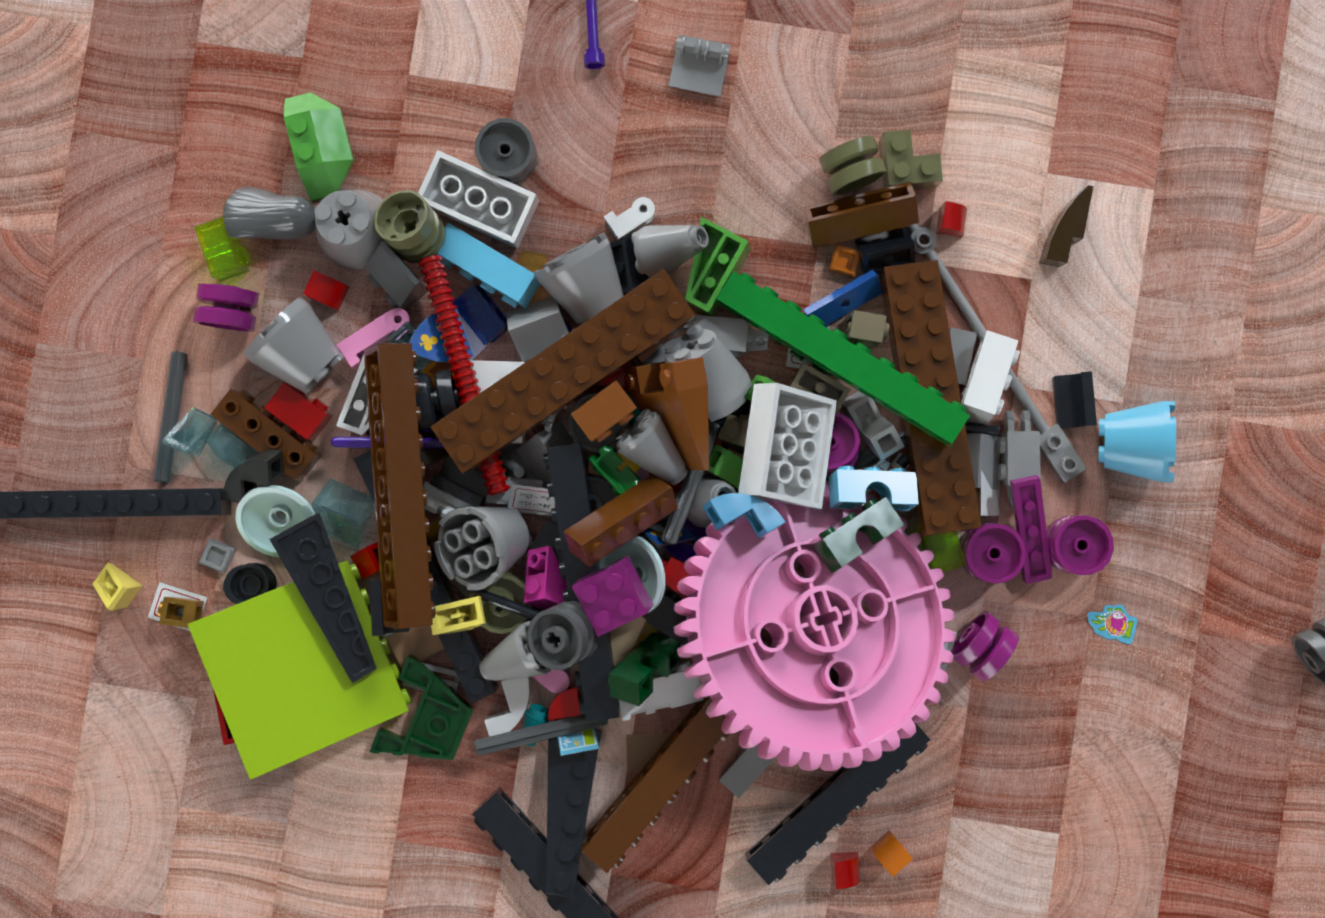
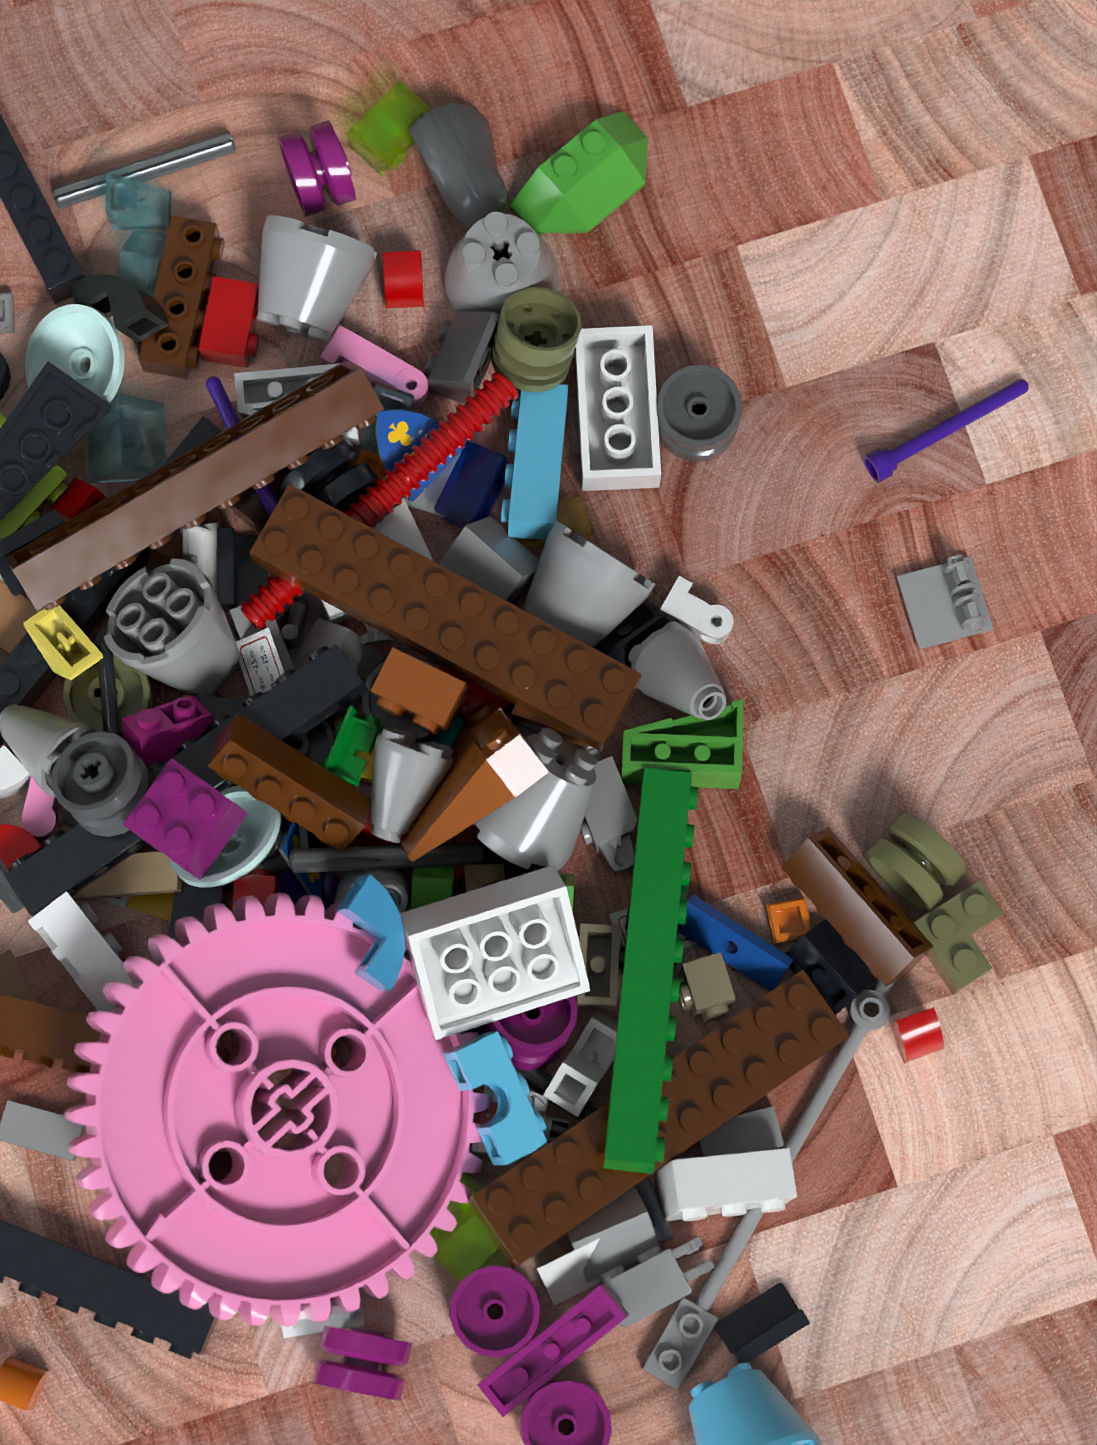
camera: 60 degrees right, 10 degrees down
(634, 675) = (90, 903): dark green arch -> none
(840, 545) = (456, 1118): arch -> none
(1067, 229) = (987, 1195): dark brown slope -> none

